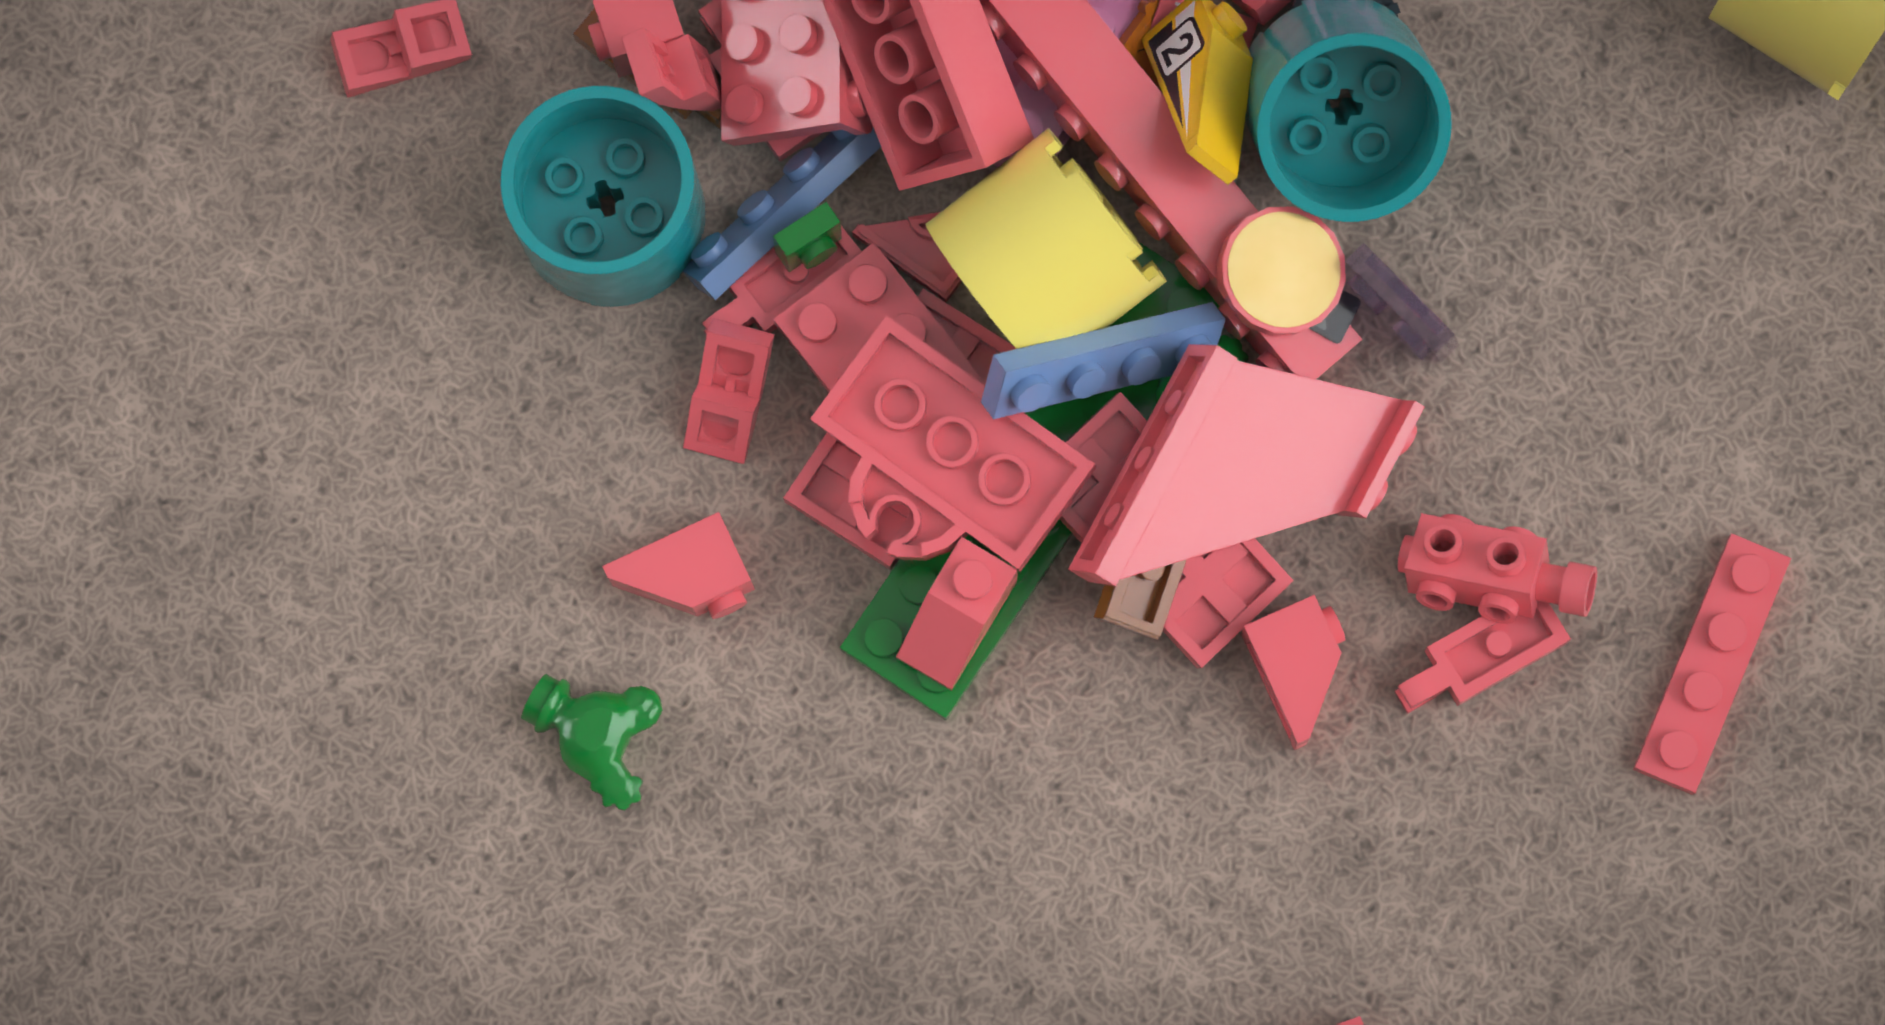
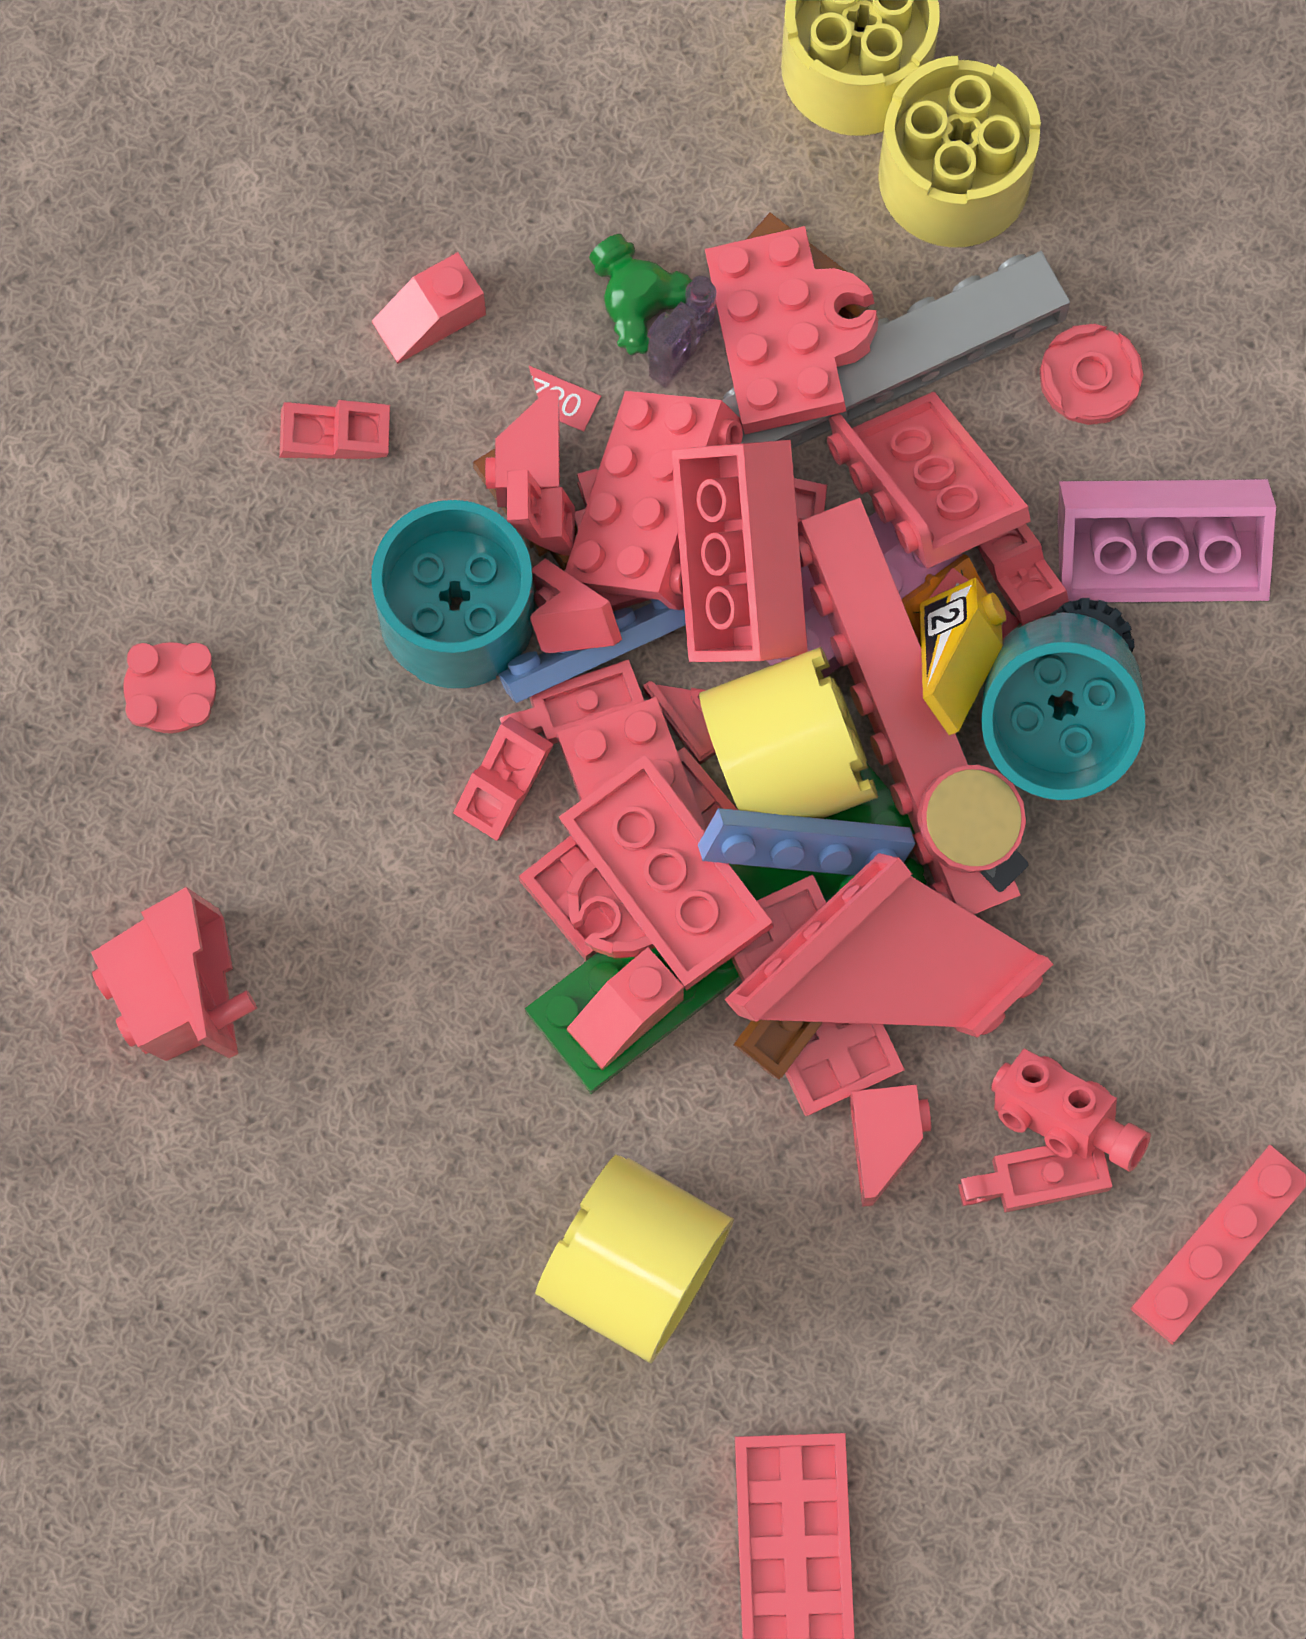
camera: 10 degrees right, 5 degrees down
(309, 405) = (169, 686): none -> coral piece
(428, 746) = (173, 979): none -> coral piece
(595, 732) = (308, 1013): green animal -> none
(687, 570) = (423, 908): coral slope -> none
(744, 176) = (570, 613): none -> coral slope
(809, 239) = (605, 677): green plate -> none
(1060, 897) = (634, 1257): none -> light yellow brick
(1383, 289) = (1051, 863): clear purple plate -> none

